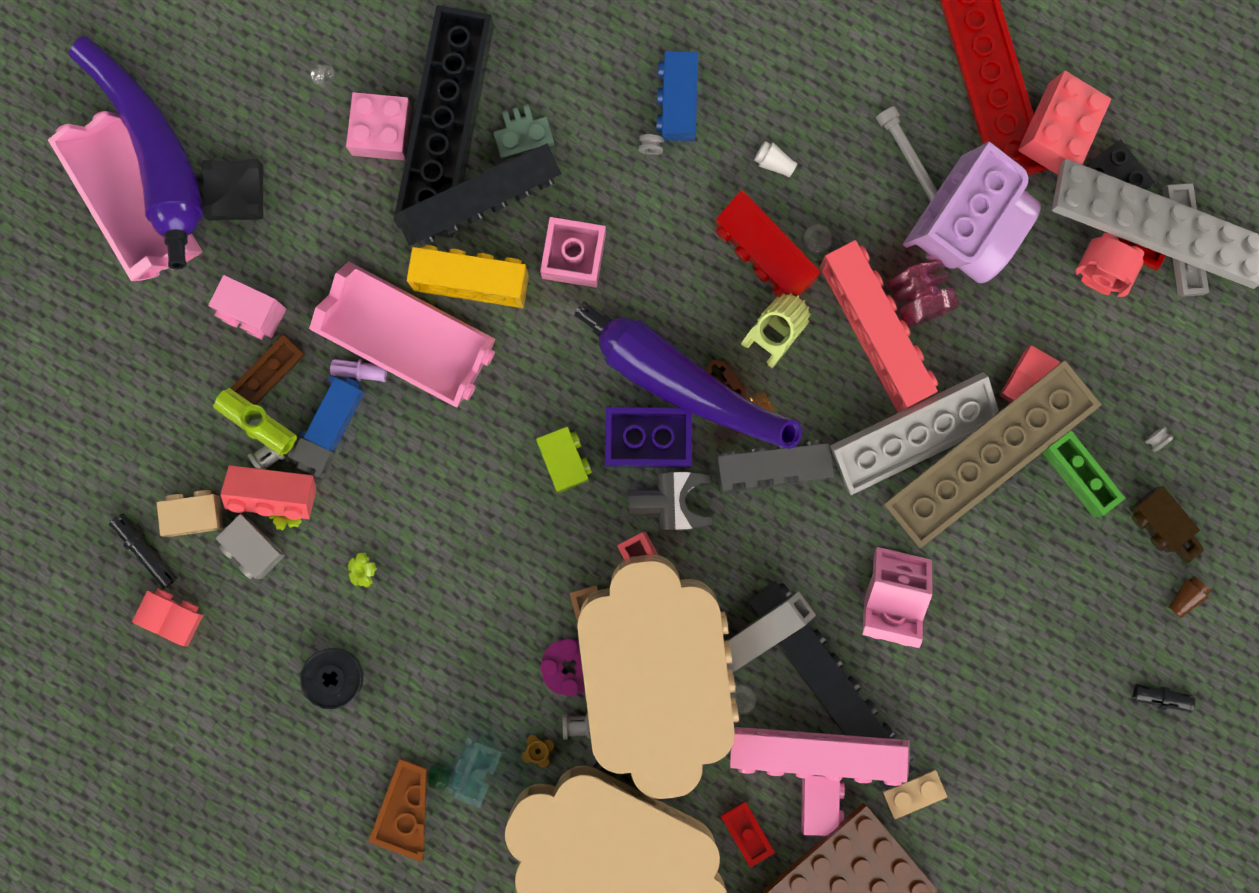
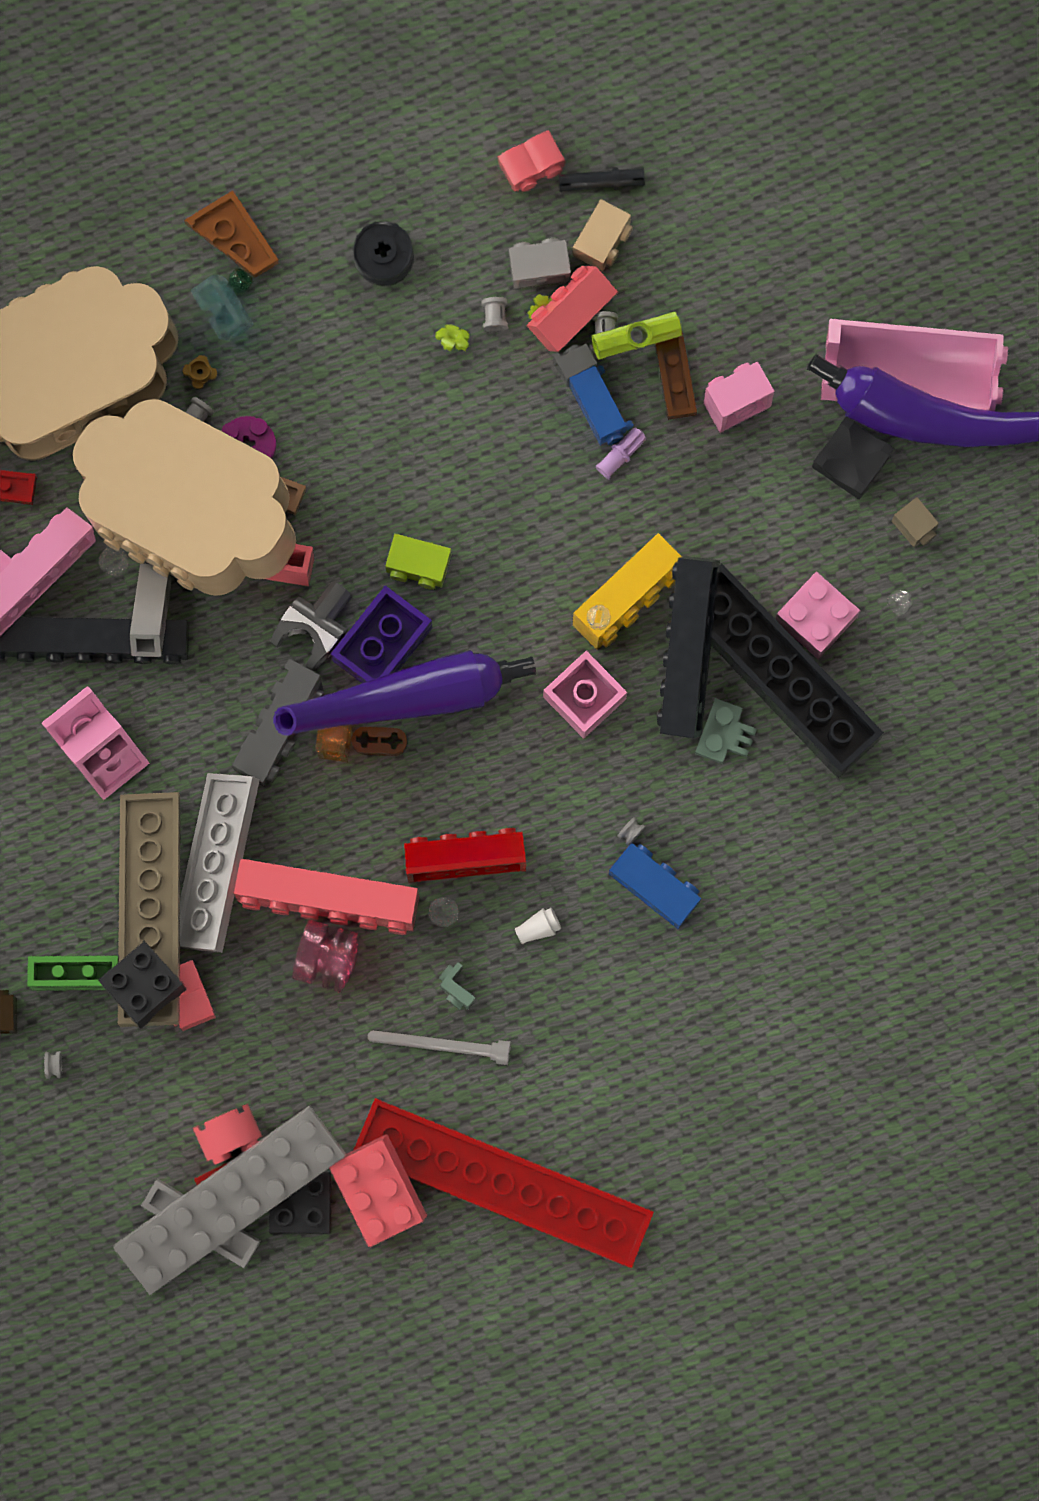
camera: 125 degrees right, 5 degrees down
(250, 106) = (916, 523): none -> dark tan brick
(317, 551) = (495, 314): none -> light grey bush
(403, 334) = (622, 508): bright pink cylinder -> none
(511, 279) = (605, 617): none -> clear hinge
(793, 311) = (394, 827): yellowish green piece -> none
(872, 181) = (456, 994): none -> sand green bracket
(978, 214) = (354, 1045): lavender brick -> none
(1061, 406) = (142, 984): none -> black brick

